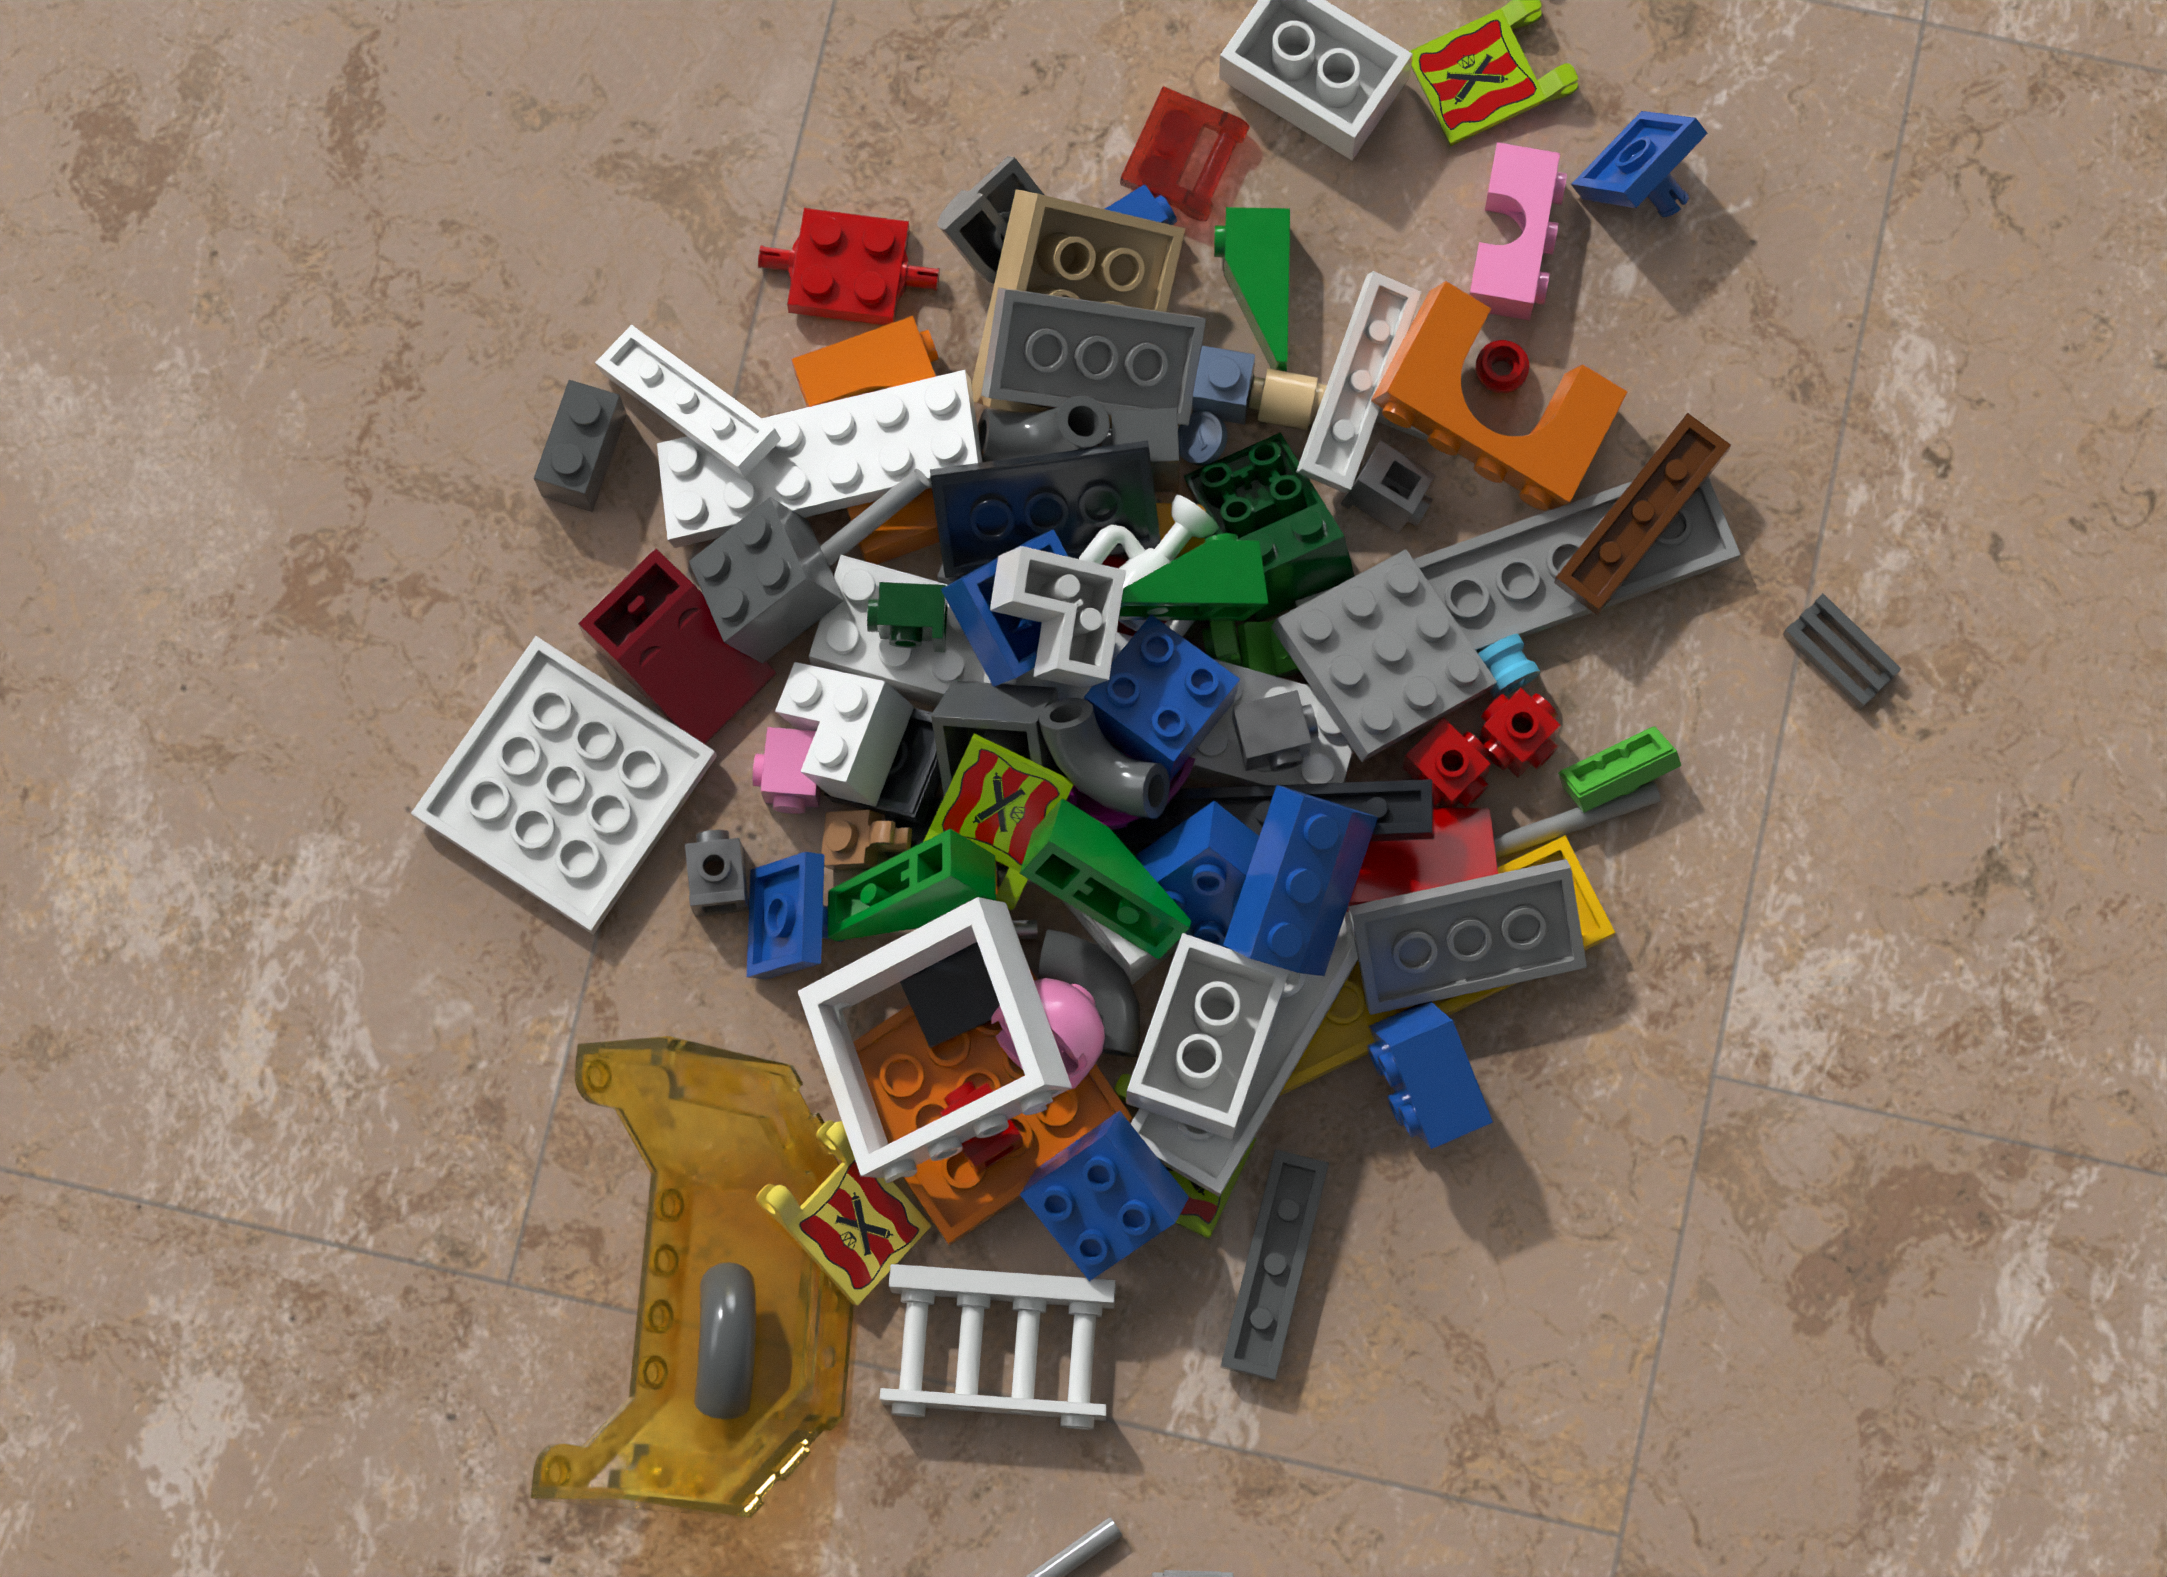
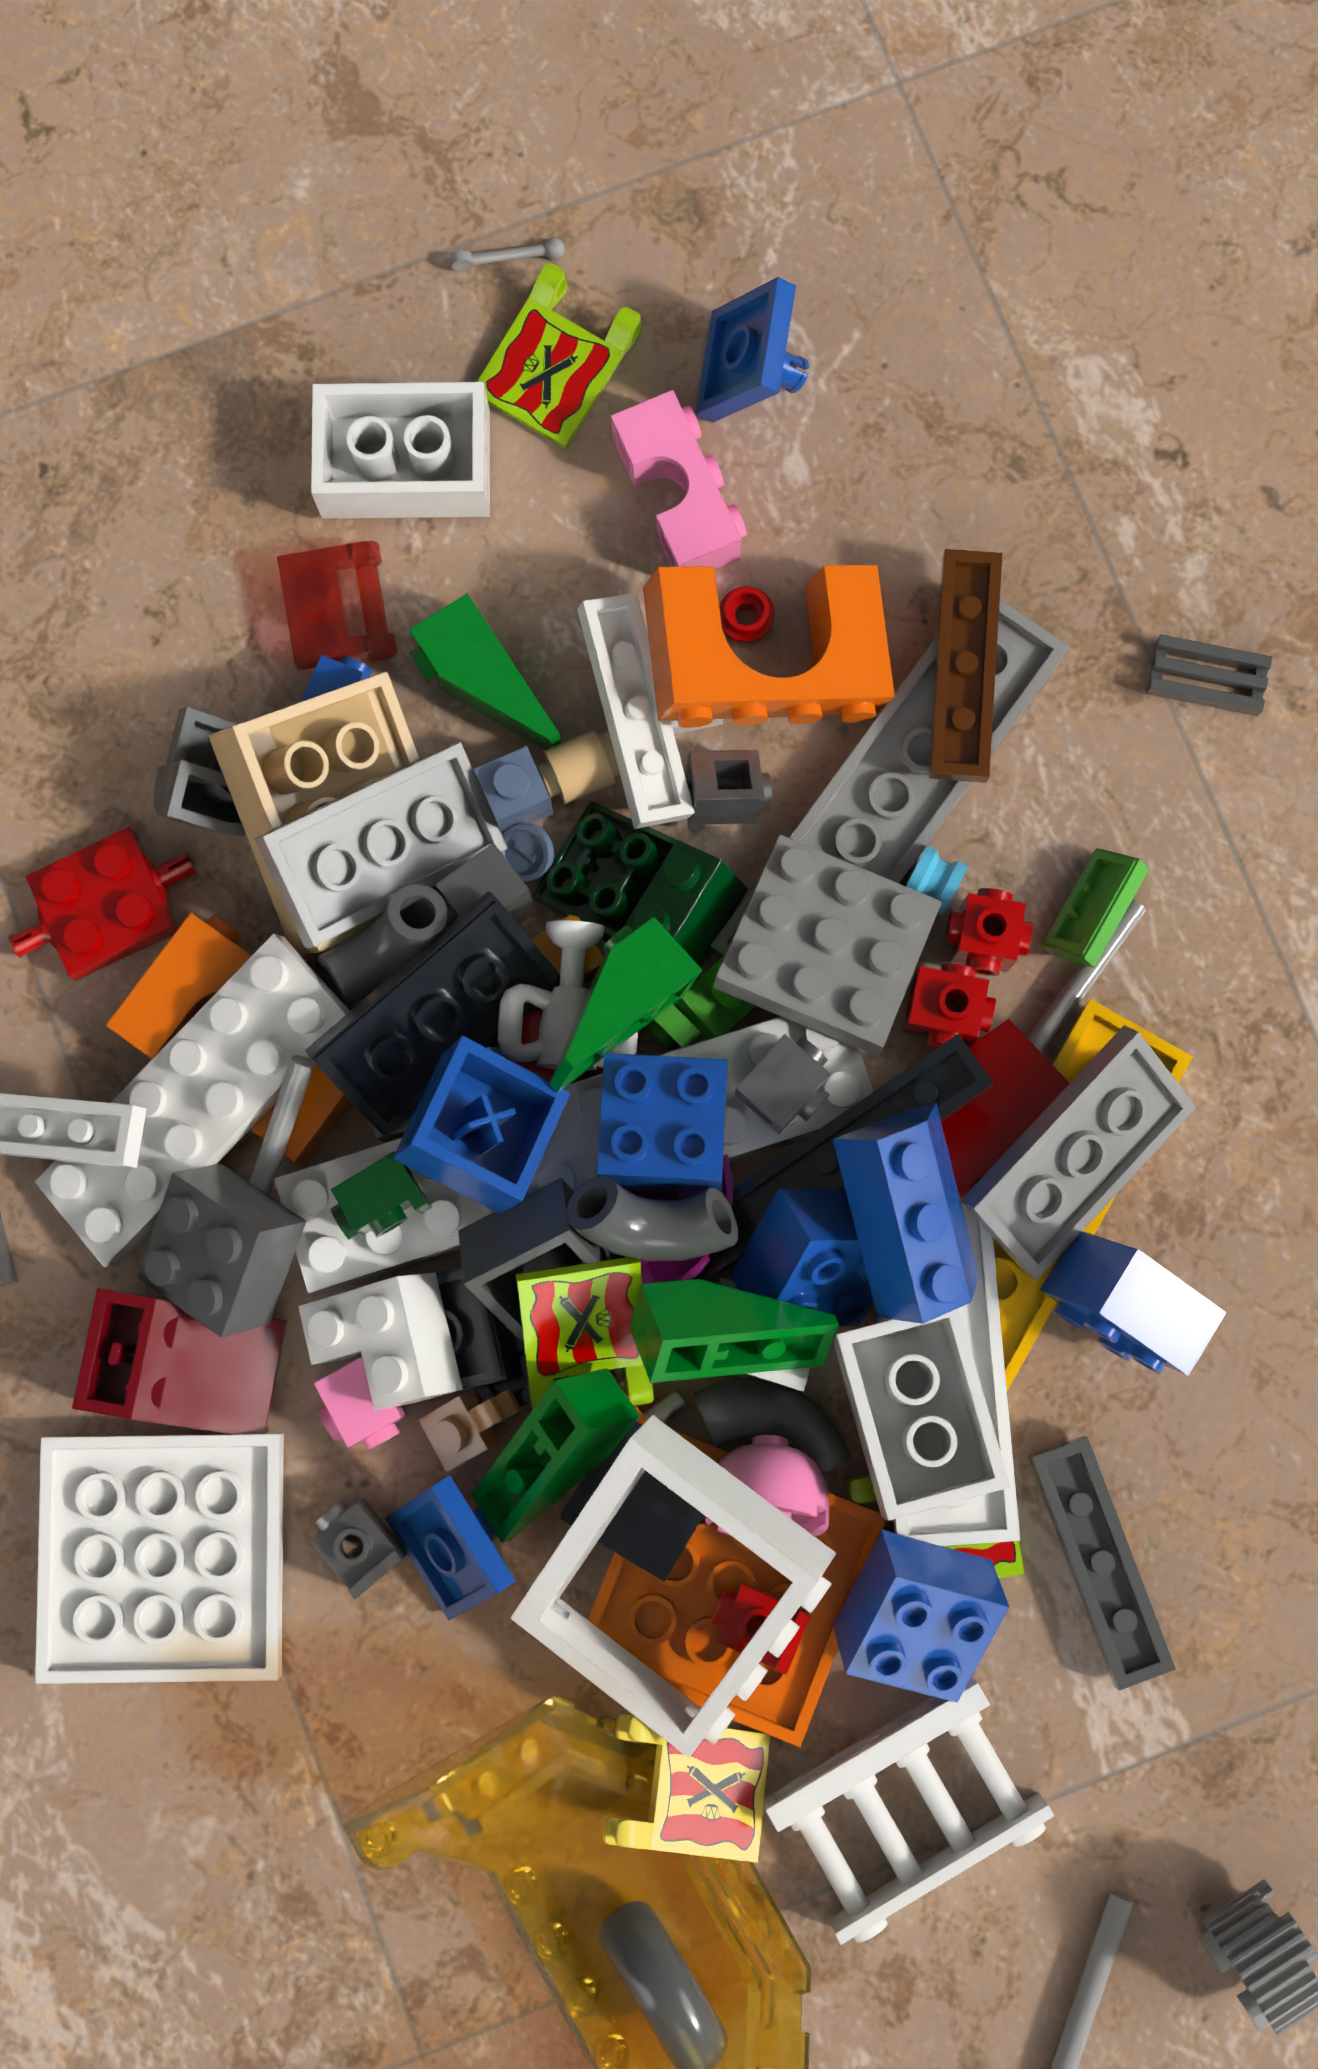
camera: 35 degrees left, 5 degrees up
(1076, 607) = (538, 1100): white brick -> none

